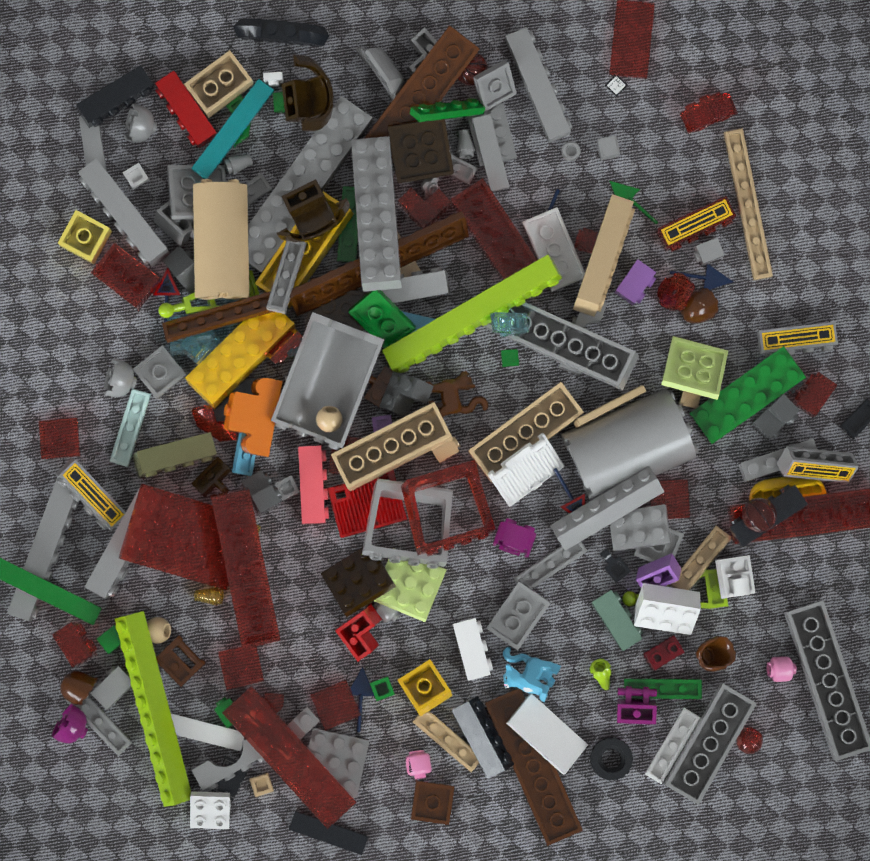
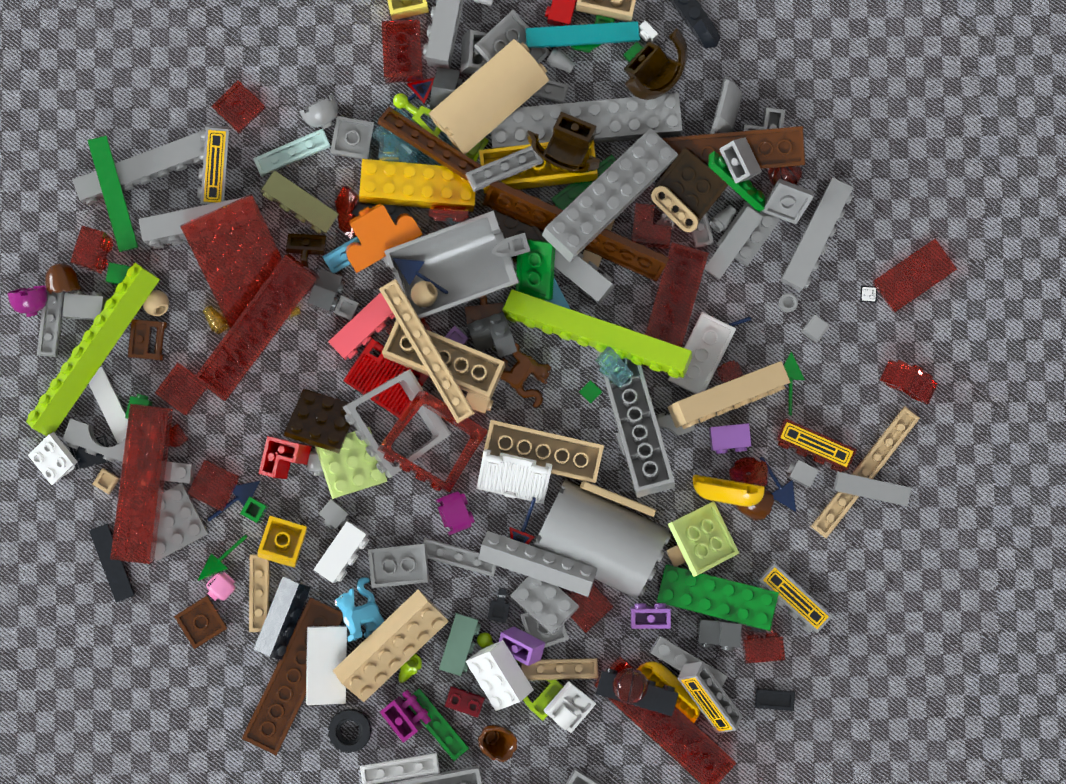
camera: 45 degrees right, 0 degrees up
(301, 414) = (411, 268): none -> dark blue piece
(351, 321) = (512, 246): none -> light grey plate
(376, 453) = (426, 351): none -> tan tile
(398, 755) = (215, 565): none -> green piece
(435, 93) = (740, 160): none -> light grey brick
(436, 177) = (667, 204): none -> tan plate
(438, 631) = (334, 515): none -> light grey brick
(574, 672) = (390, 646): none -> tan brick
(675, 318) = (728, 491): none -> yellow brick
(719, 459) = (650, 616): none -> medium lavender brick
(765, 209) = (872, 488): none -> light grey tile

